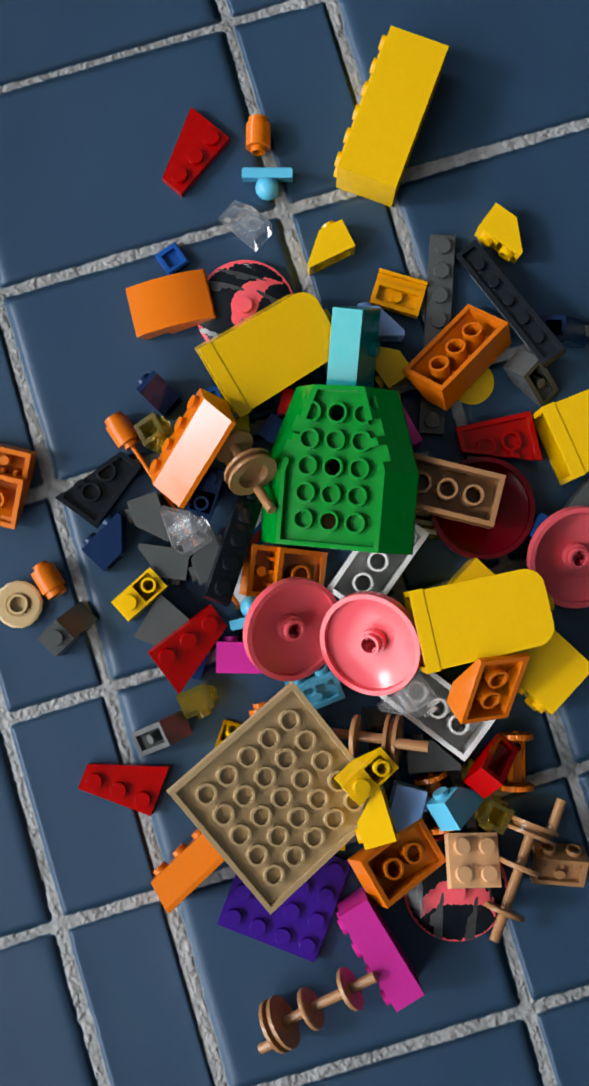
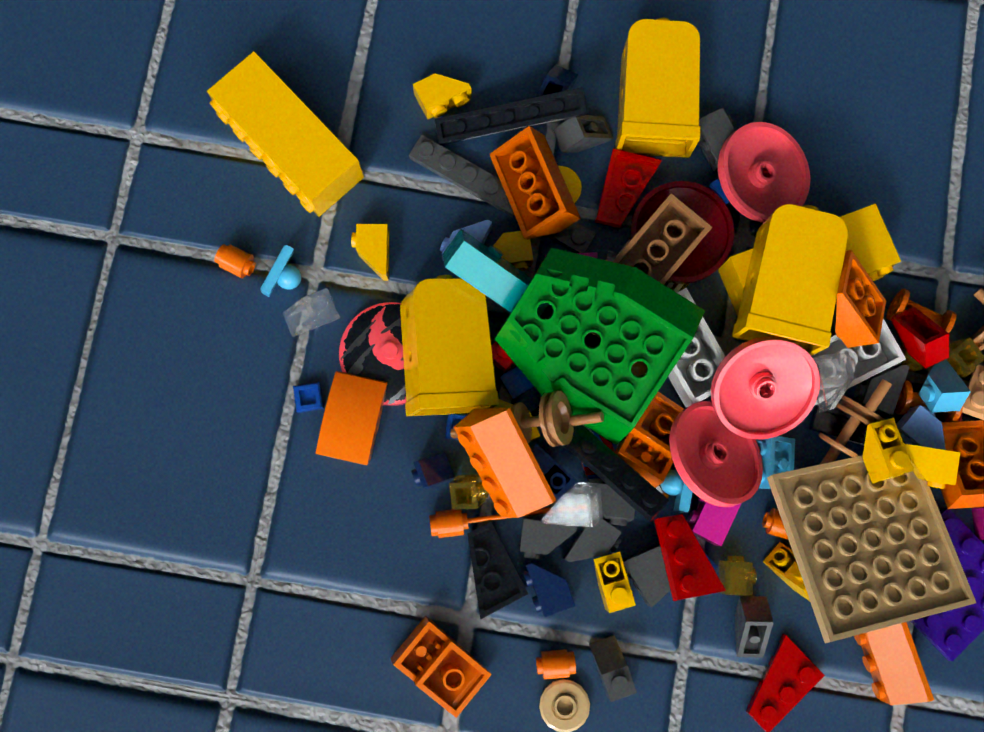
camera: 70 degrees left, 5 degrees down
(194, 152) = (218, 327): red wing -> none
(398, 293) = (447, 209): light orange plate -> none

